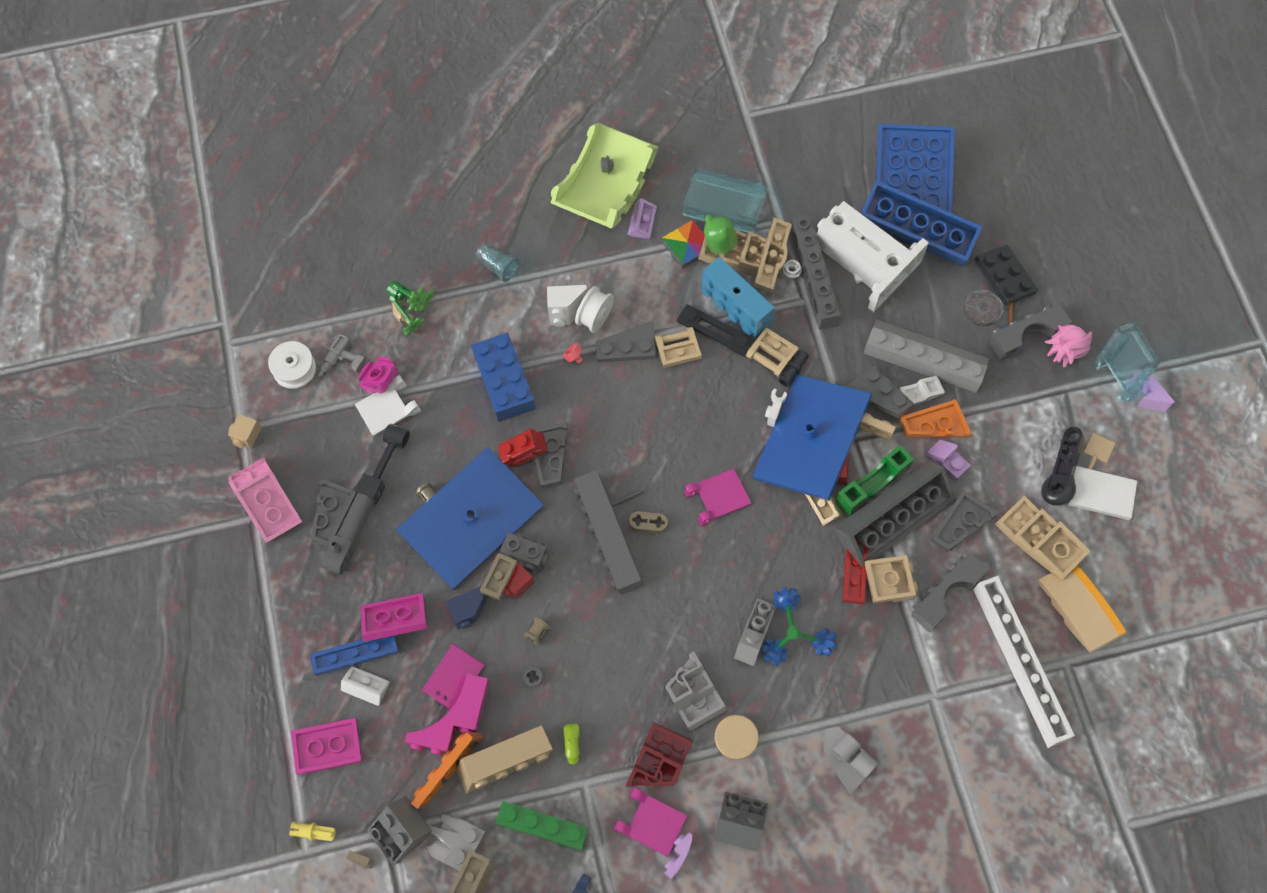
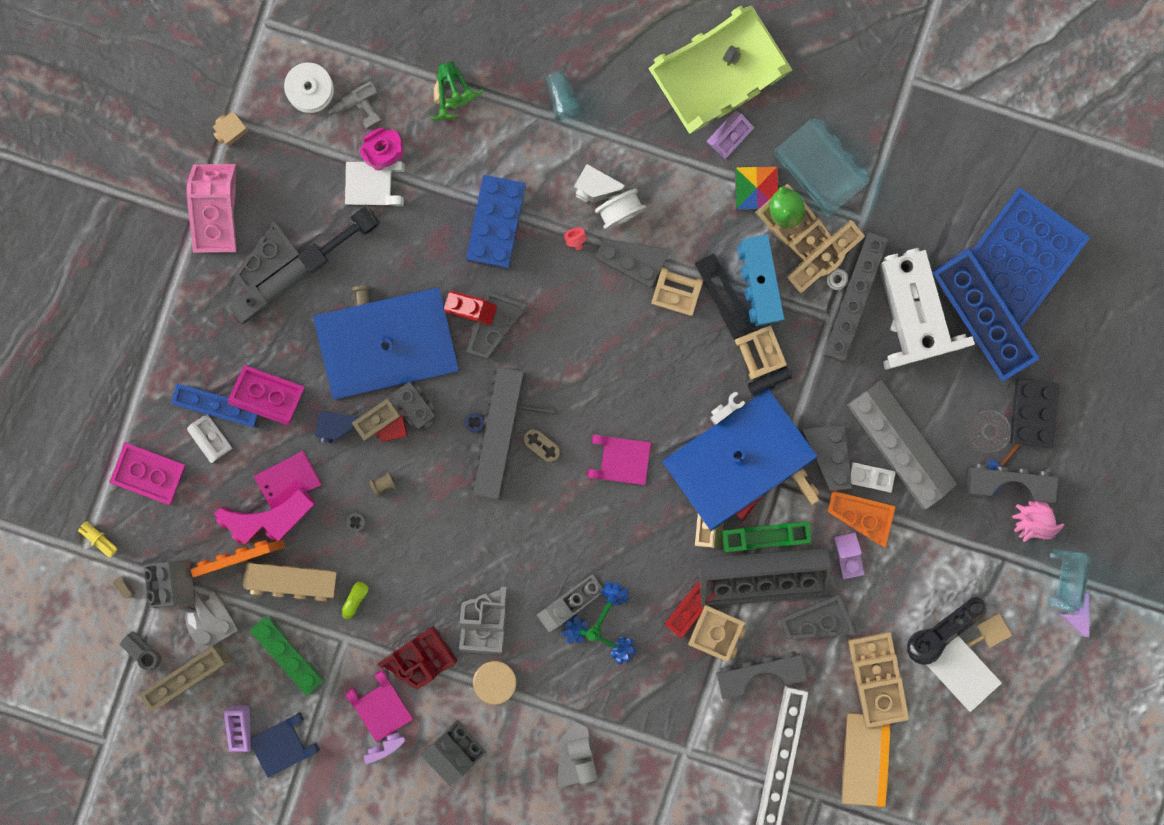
camera: 30 degrees right, 20 degrees up
(577, 533) = (474, 429): none -> dark blue bush

